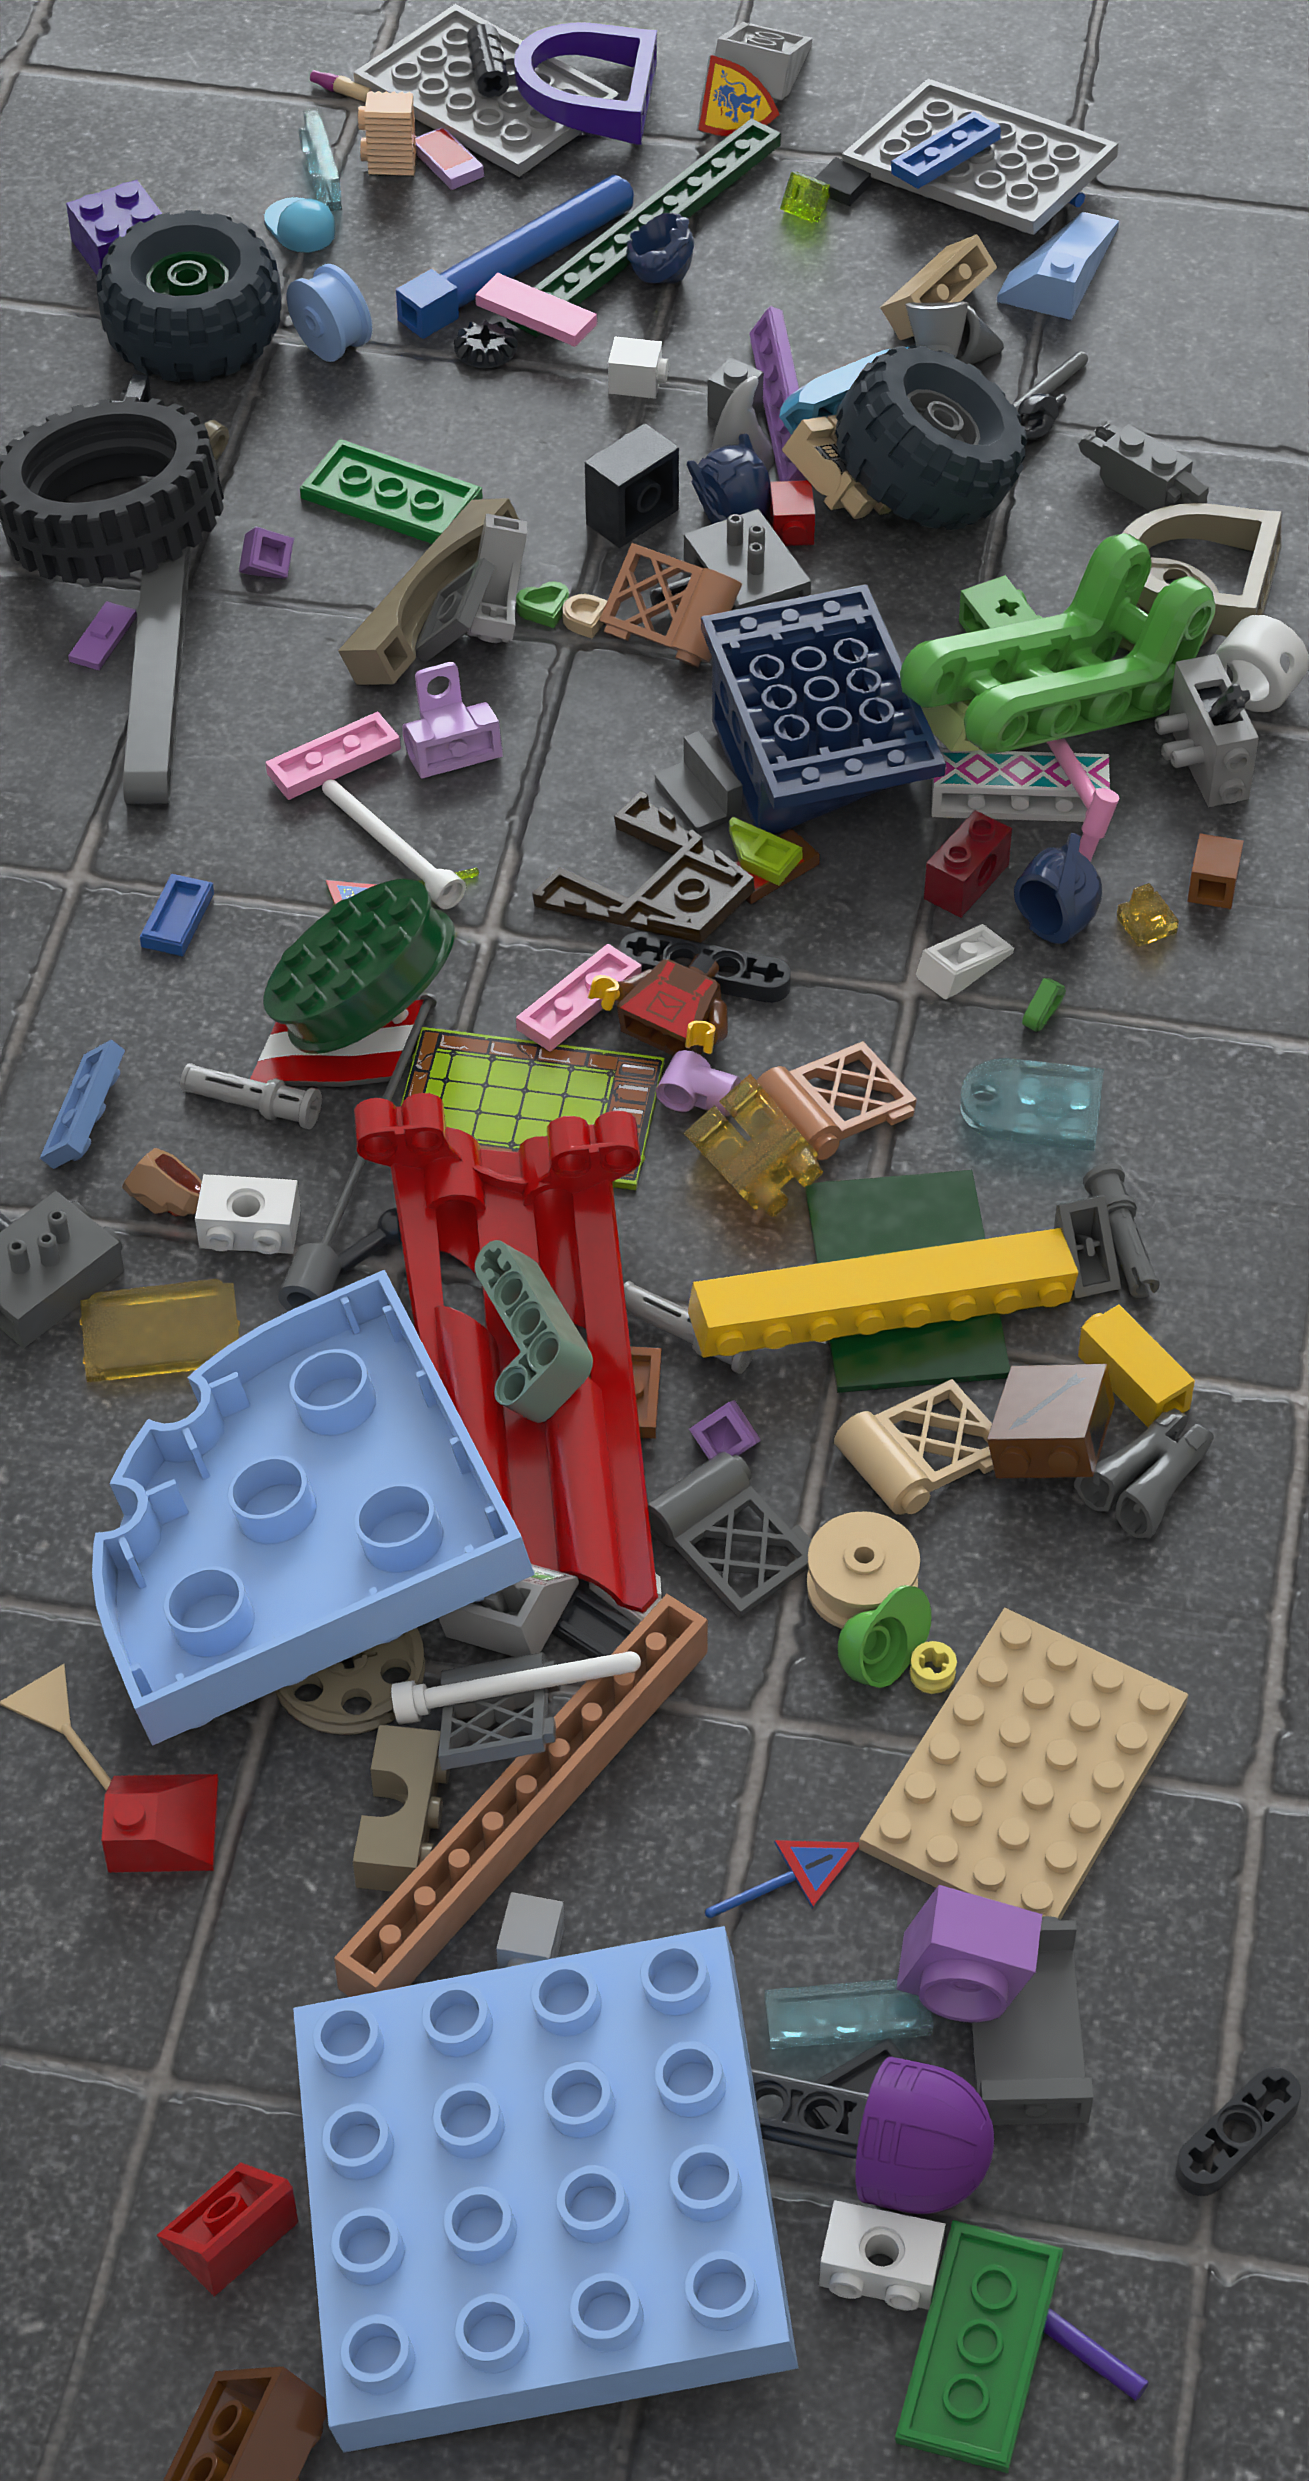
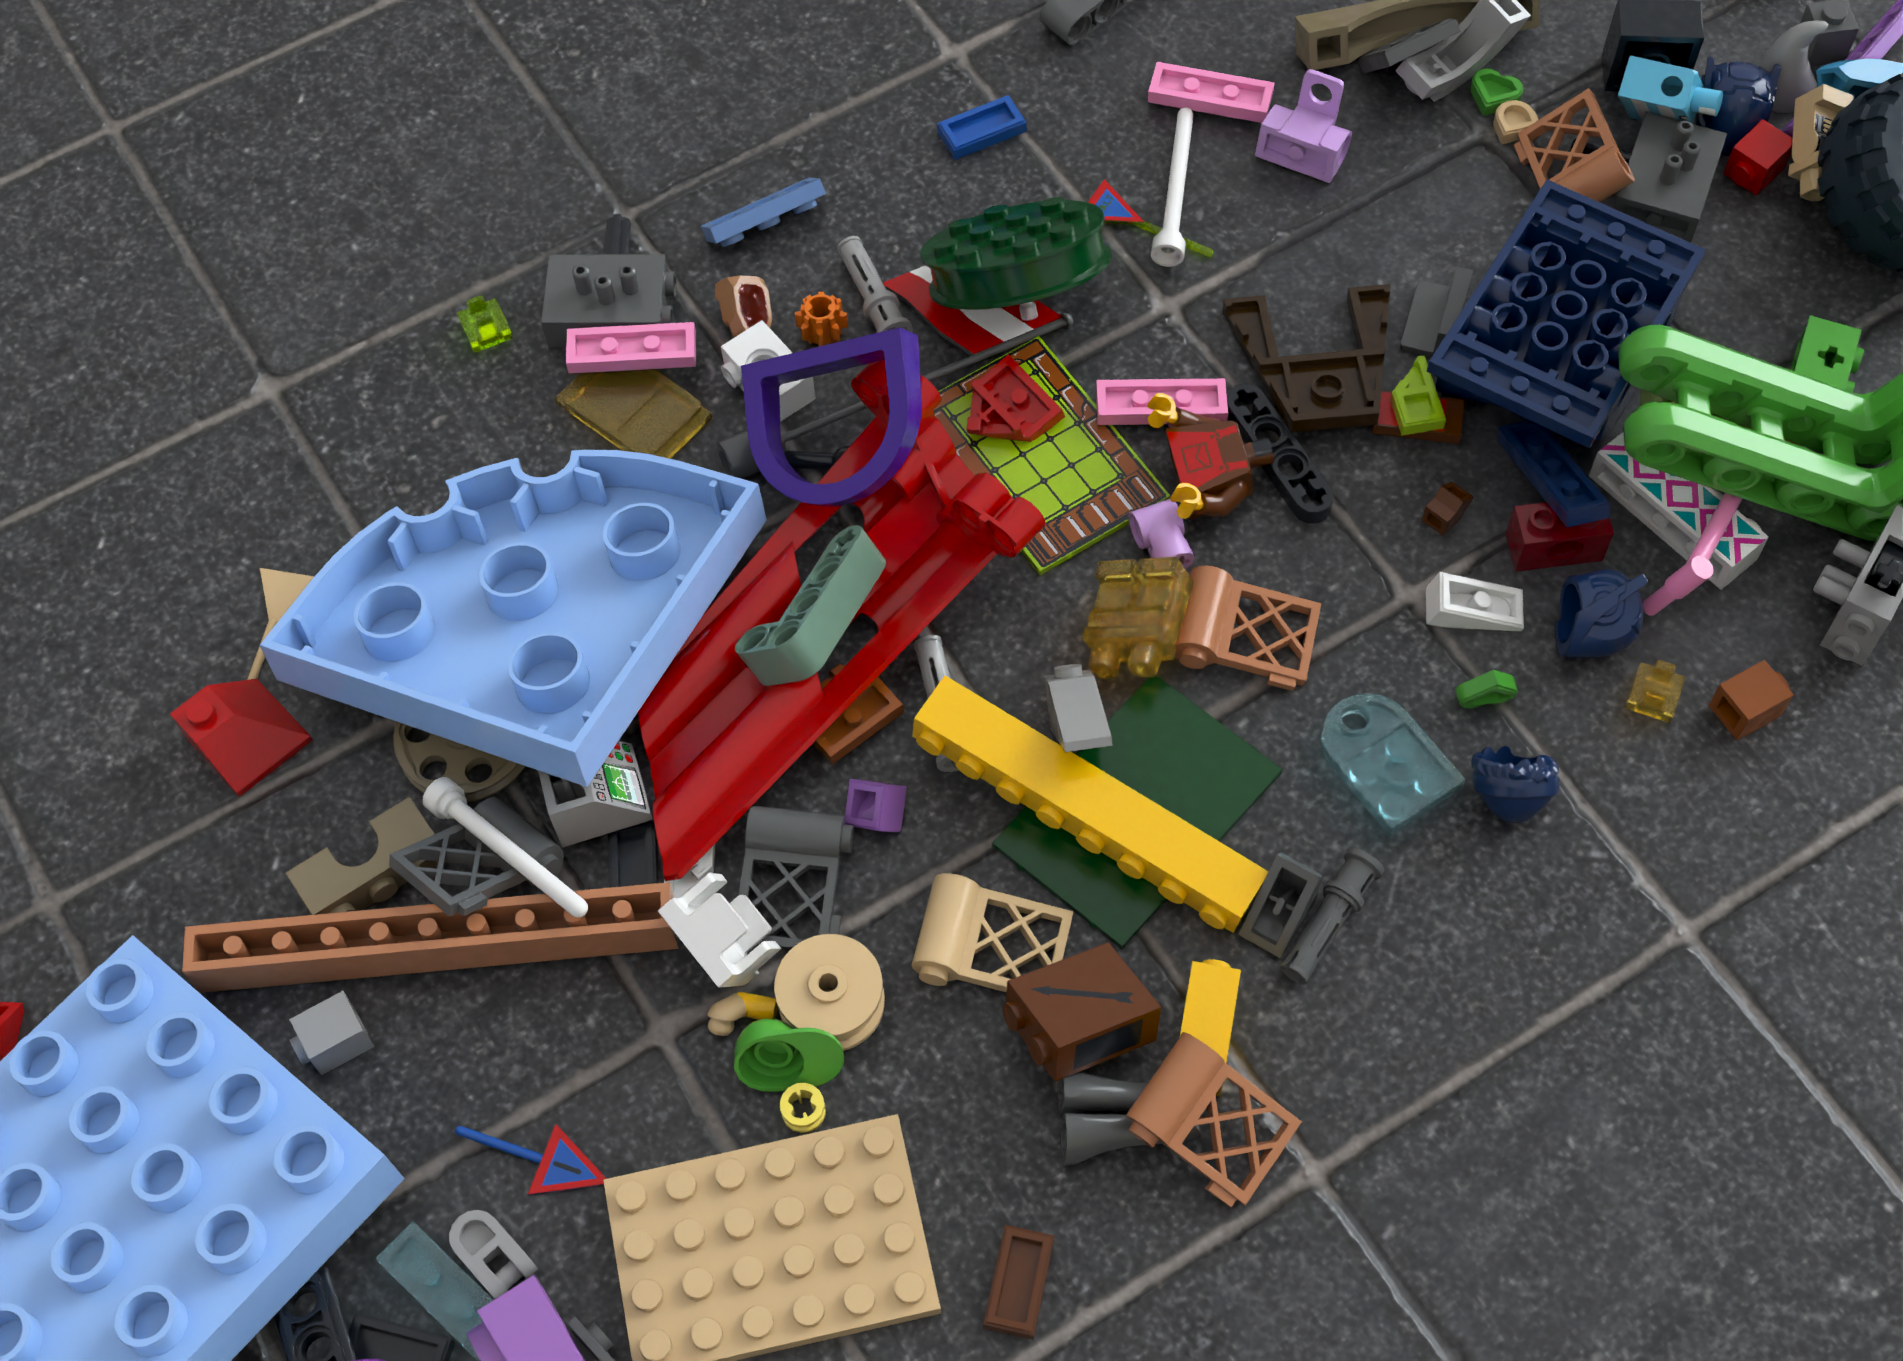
camera: 50 degrees right, 10 degrees up
(115, 1280) = (631, 347): none -> bright pink plate
(240, 1143) = (821, 319): none -> orange gear
(382, 1079) = (762, 409): none -> dark purple window
(470, 1085) = (1011, 405): none -> red slope
(671, 509) = (1666, 91): none -> medium azure torso
(748, 1591) = (721, 932): none -> white panel
(804, 1645) = (737, 1006): none -> arm
(805, 1233) = (1076, 709): none -> light grey slope
(823, 1957) = (478, 1240): none -> light grey plate
(869, 910) = (1446, 507): none -> reddish brown piece
(922, 821) = (1554, 473): none -> dark blue tile
(1141, 1044) = (1514, 785): none -> dark blue hair
(1188, 1410) = (1180, 1094): none -> nougat piece
(1212, 1635) = (1018, 1282): none -> reddish brown tile

